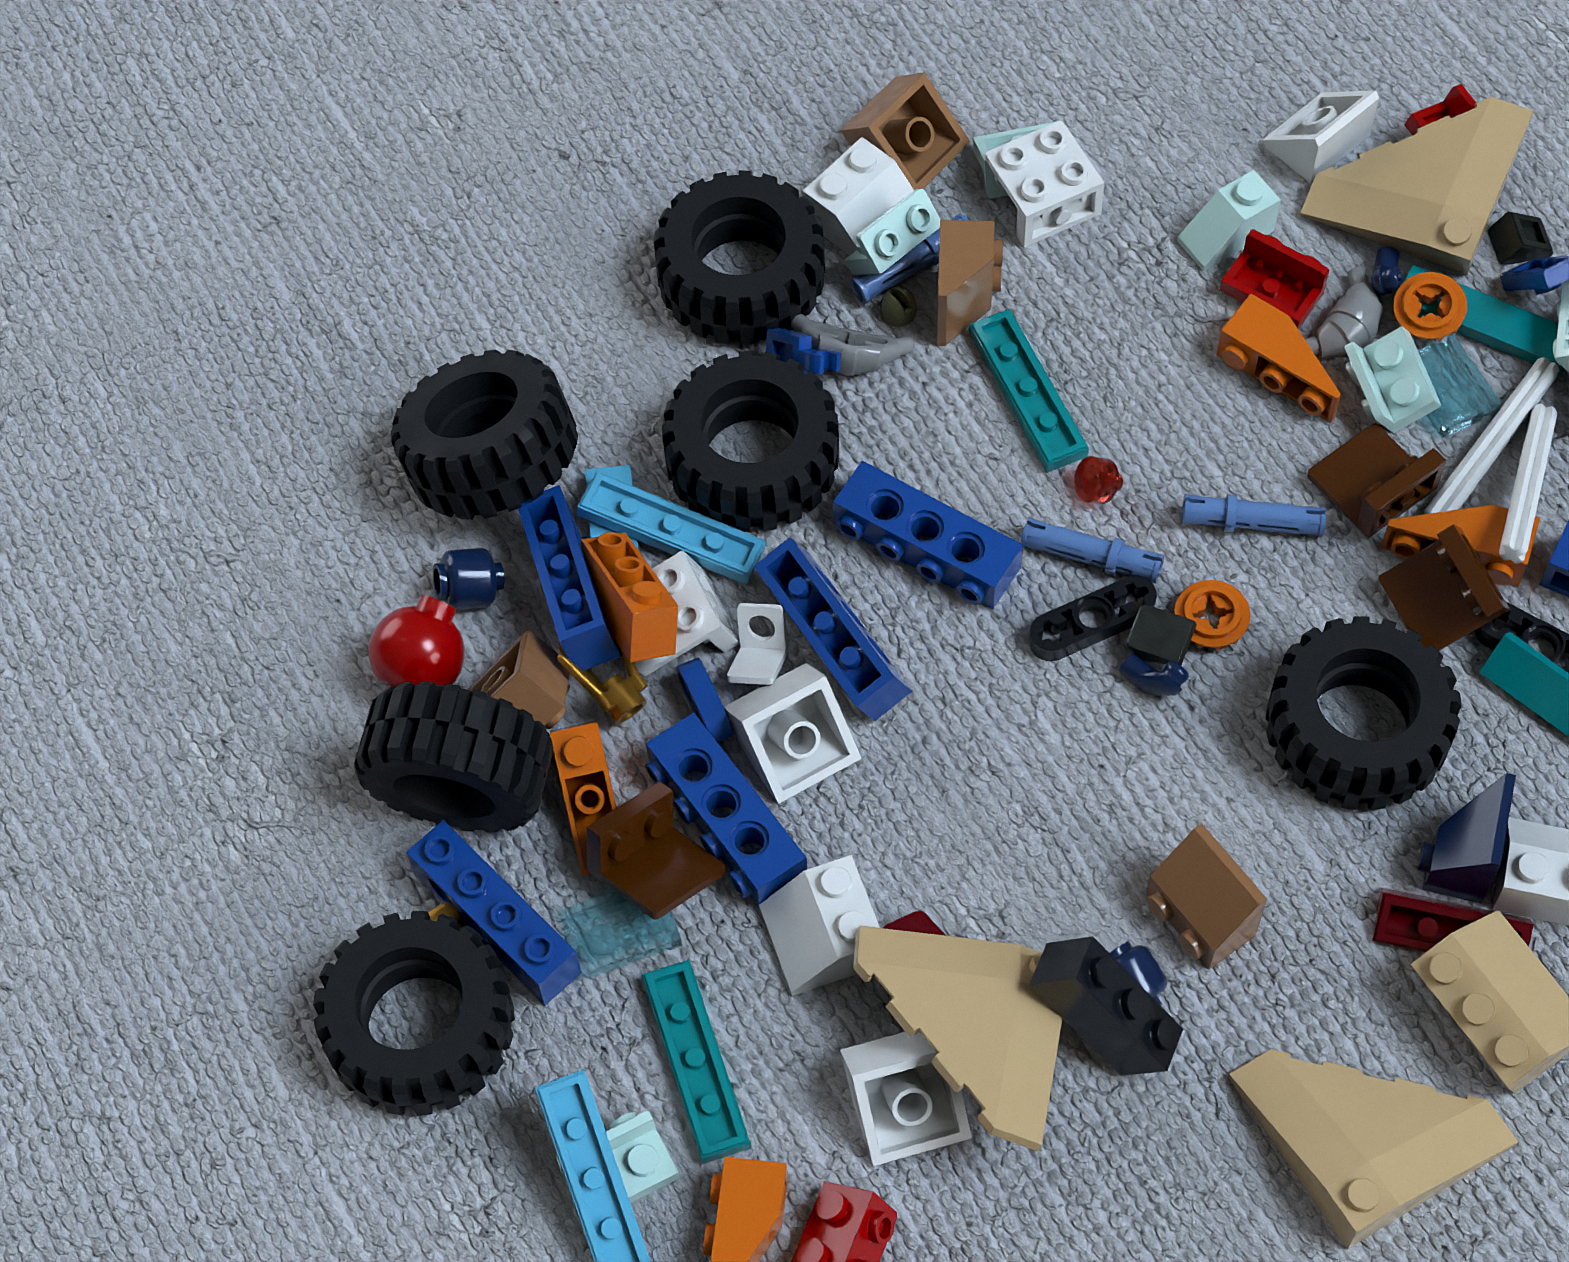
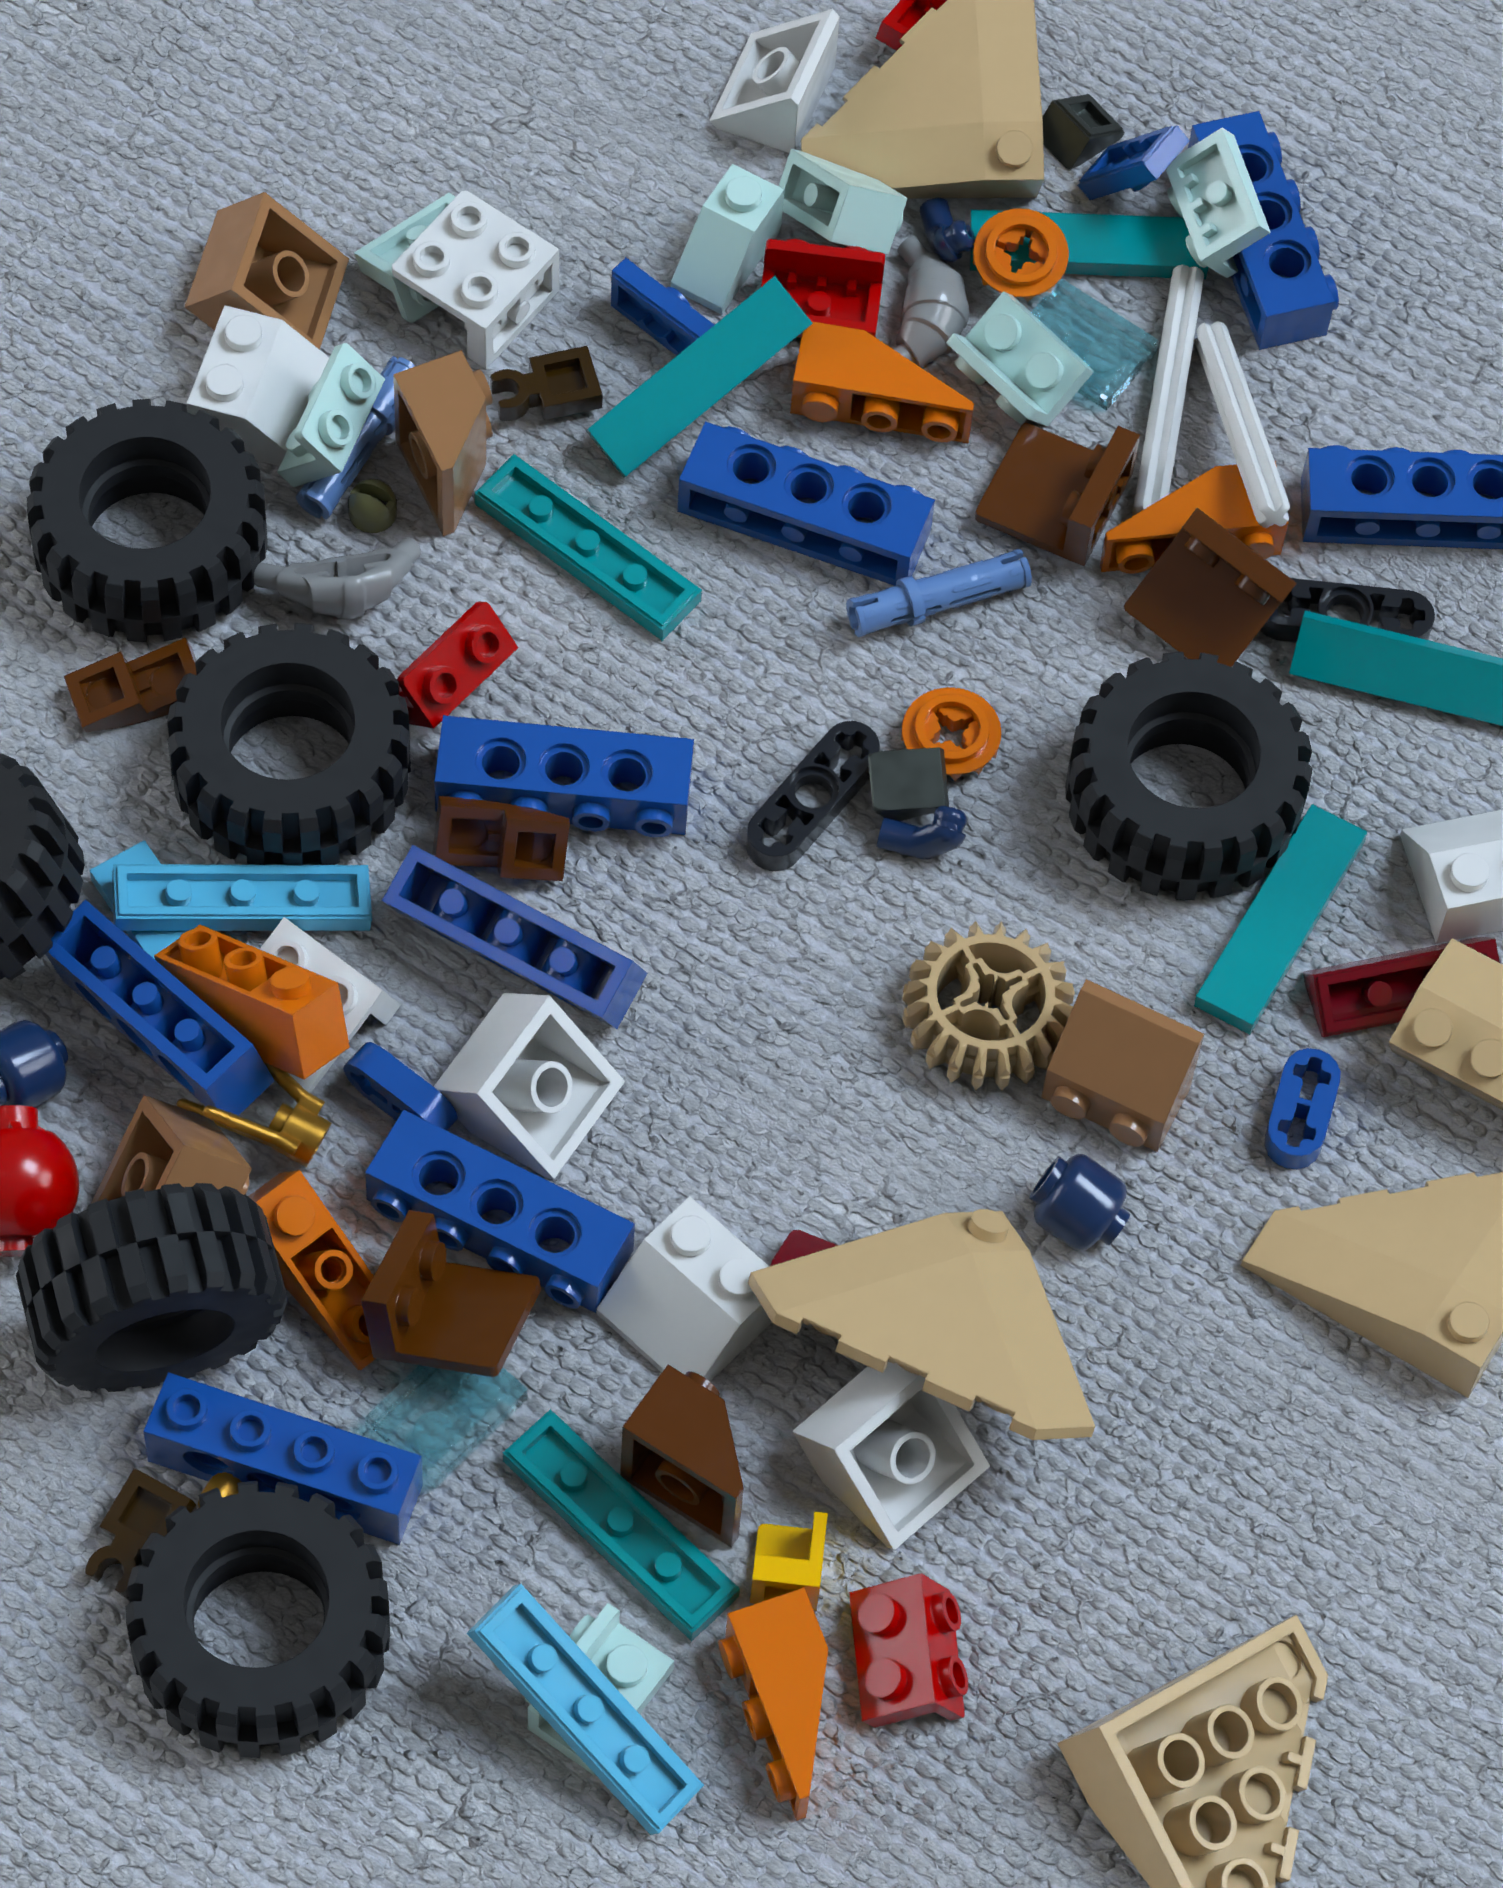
camera: 35 degrees left, 0 degrees up
(382, 900) = (131, 1520): none -> dark brown plate
(667, 361) = (132, 692): none -> reddish brown slope
(756, 1028) = (685, 1454): none -> reddish brown slope
(759, 656) = (438, 1011): white bracket -> none
(794, 1140) = (789, 1560): none -> yellow panel
(798, 347) = (285, 607): blue plate -> none
(863, 557) = (501, 836): none -> reddish brown slope
(887, 430) = (455, 665): none -> red bracket
(1063, 274) = (556, 382): none -> dark brown plate
(1097, 480) = (733, 624): clear red tile -> none
(1098, 818) = (979, 1037): none -> tan gear
(1103, 553) = (772, 713): medium blue pin -> none
(1106, 1006) = (1082, 1238): black brick -> none
(1158, 254) = (656, 308): none -> blue plate
(1158, 303) = (699, 377): none -> teal tile
(1196, 441) = (822, 530): none -> blue brick
(1320, 225) = (841, 202): none -> light aqua slope
(1337, 992) = (1315, 1111): none -> blue beam
(1378, 844) = (1280, 919): none -> teal tile
(1469, 845) = (1387, 879): dark blue slope -> none

